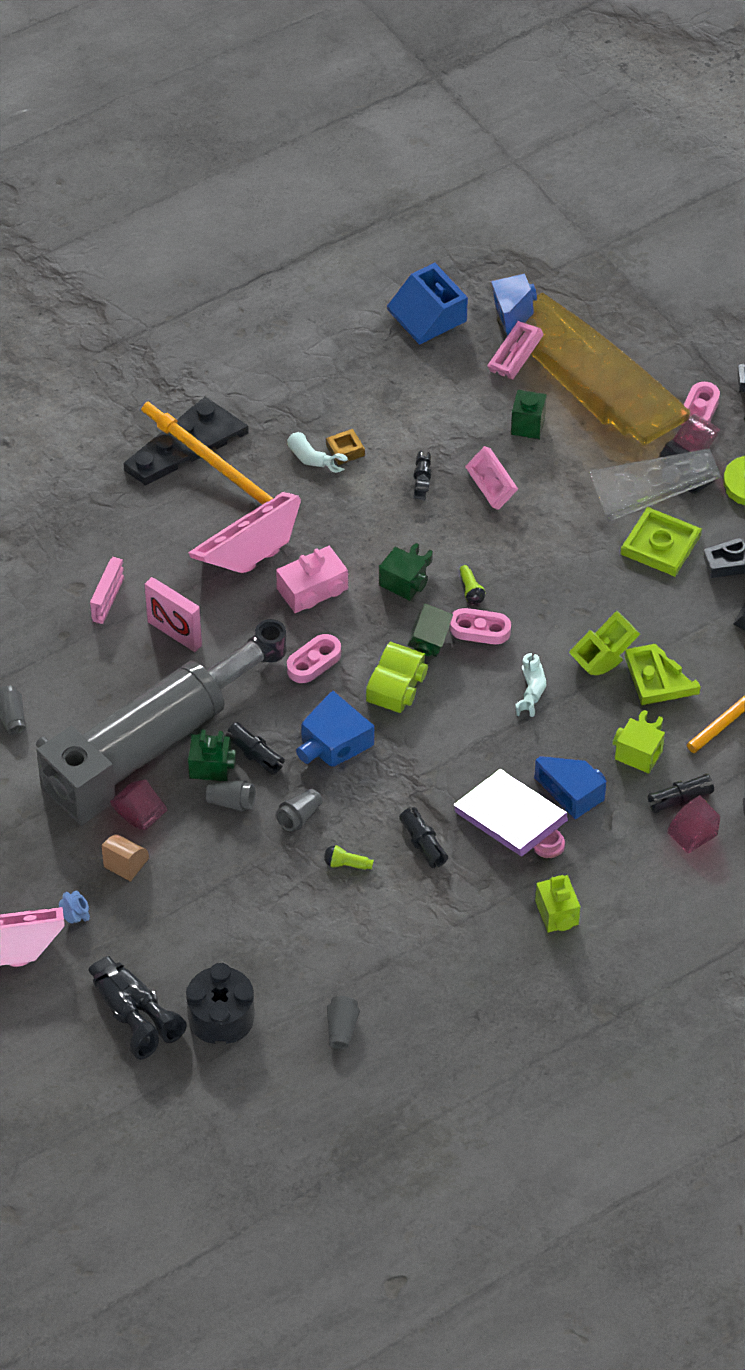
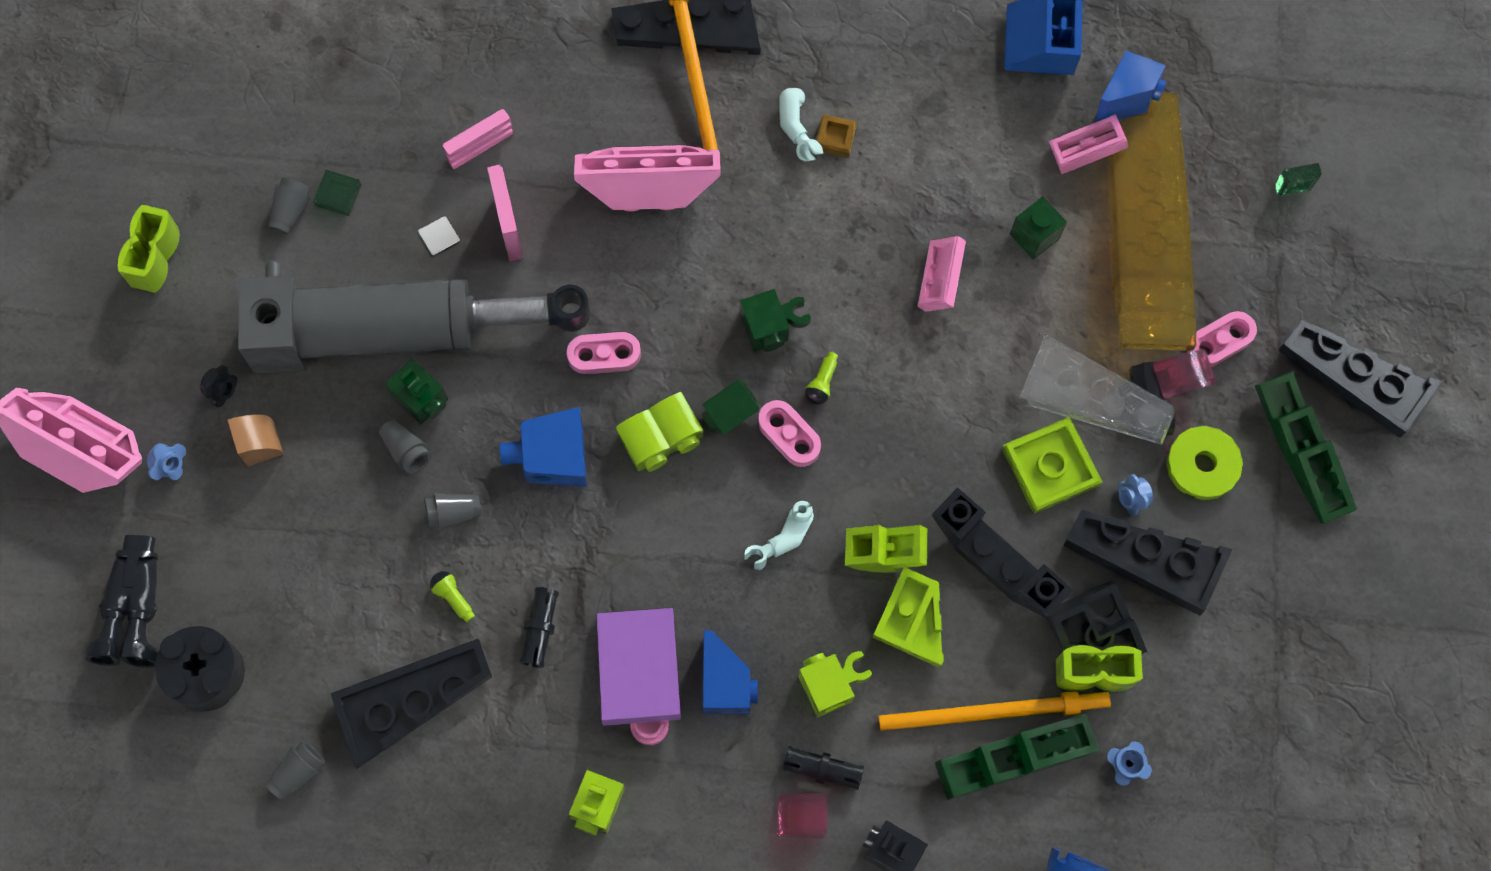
camera: 35 degrees right, 20 degrees up
(36, 683) = (337, 192): none -> clear green tile
(67, 841) = (218, 385): none -> black plate
(131, 667) = (438, 235): none -> white sticker
(139, 804) = (313, 394): clear pink brick -> none
(255, 748) = (469, 410): black pin -> none
(312, 579) = (673, 265): bright pink brick -> none
(373, 936) = (399, 701): none -> black wing
(422, 475) = (880, 221): black piece -> none
(663, 291) = (1298, 179): none -> clear green tile
(679, 613) = (996, 559): none -> black slope
(730, 515) = (1135, 494): none -> medium blue plate

